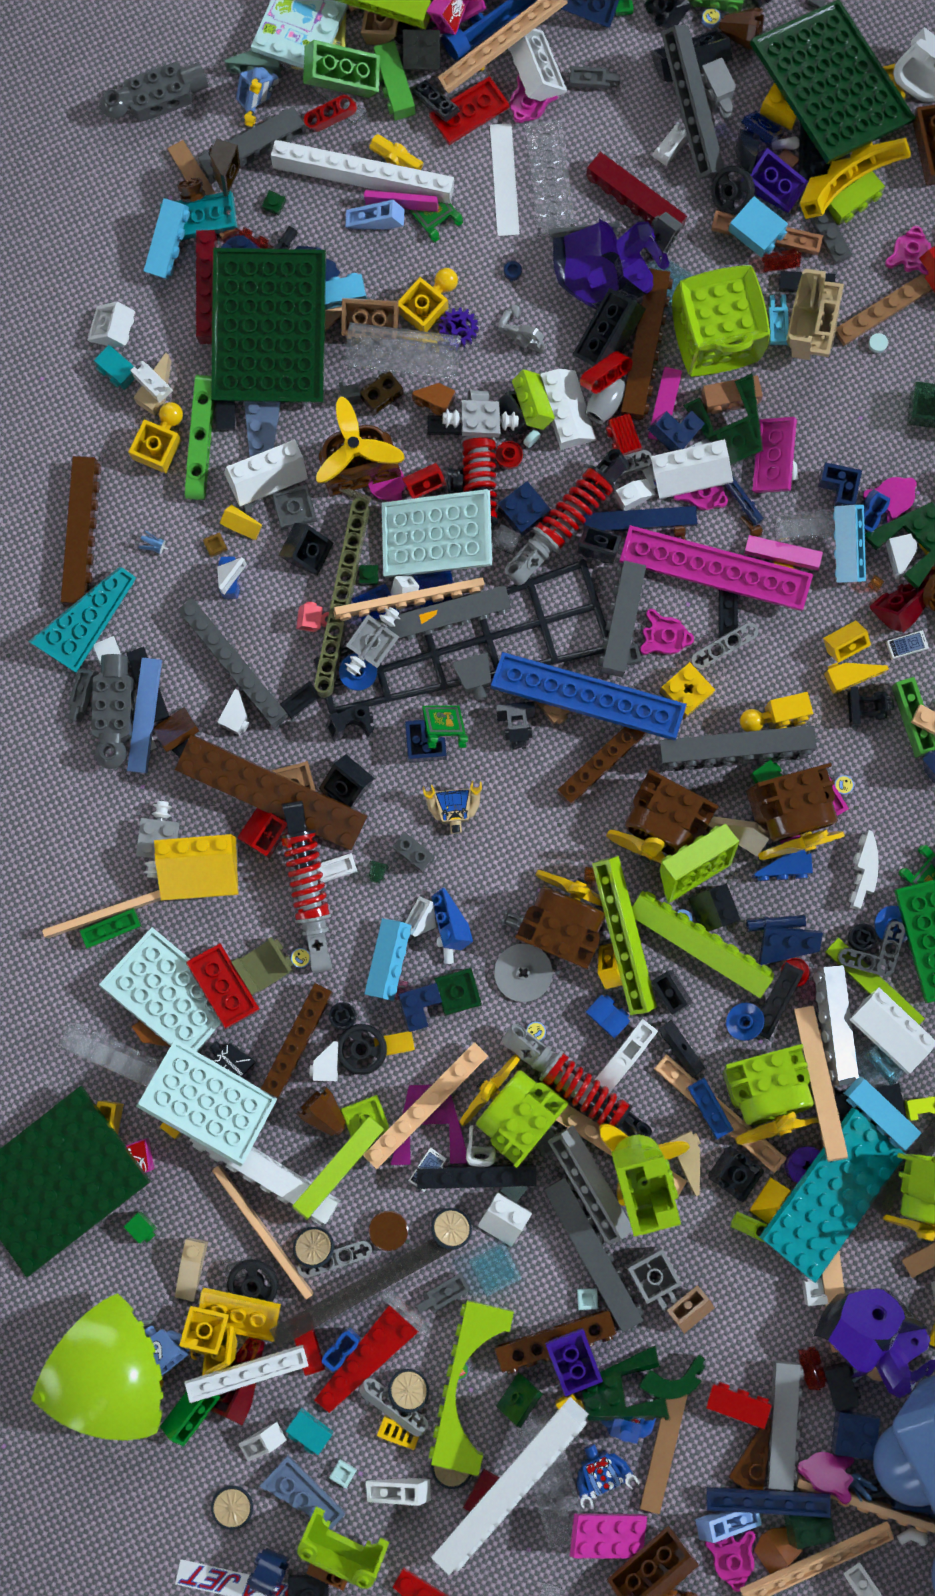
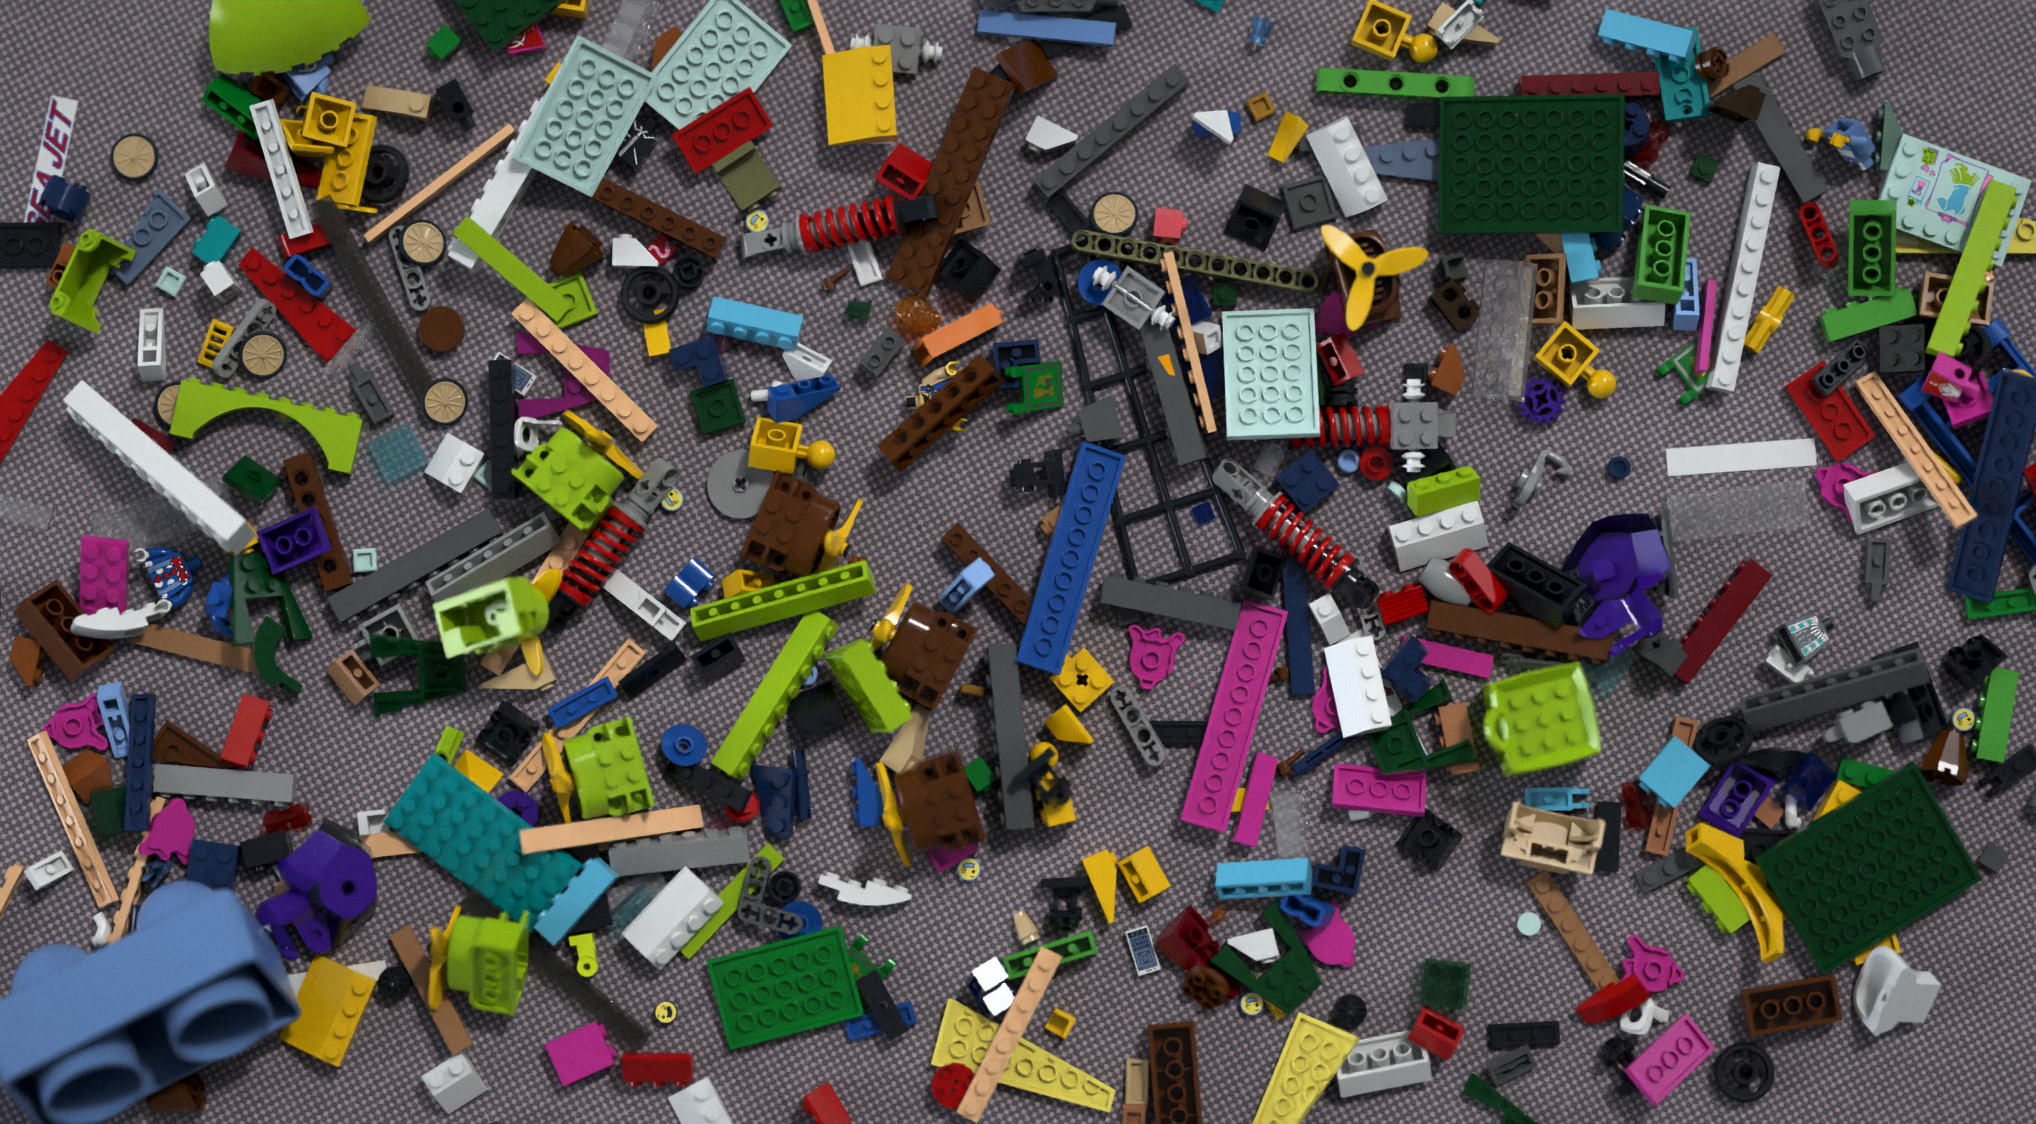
camera: 90 degrees right, 5 degrees up
(174, 1384) = (269, 88): none -> reddish brown panel
(184, 1220) = (451, 94): none -> black torso
(282, 1302) = (356, 208): none -> yellow piece
(300, 662) = (1114, 214): none -> tan wheel
(322, 1039) = (661, 249): none -> red tile
(344, 228) = (1661, 254): none -> bright green brick
(344, 1429) = (220, 281): none -> white slope
(355, 897) = (828, 282): none -> reddish brown hand
(381, 264) = (1611, 305): none -> white slope
(382, 824) = (916, 315): none -> clear orange hair
(400, 790) = (957, 334): none -> orange slope
(466, 791) = (940, 413): none -> reddish brown brick
(494, 939) = (778, 447): none -> yellow brick
(506, 478) = (1348, 461): none -> light blue tile
(548, 593) = (1203, 513): none -> clear blue piece
(612, 781) = (966, 586): none -> light blue brick
(647, 1530) = (111, 625): none -> white slope
(649, 129) = (1804, 637): none -> torso
(668, 339) = (1538, 660): none -> dark grey hinge
(686, 1238) = (437, 673): none -> dark green wing
(696, 780) = (972, 690): none -> pearl gold tile
(727, 700) = (1067, 727): none -> yellow slope
(756, 87) = (1860, 773): none -> green plate
(786, 703) = (1039, 767): none -> black tile
(813, 417) = (1430, 840): none -> black slope
(892, 738) = (1025, 928): none -> tan cone

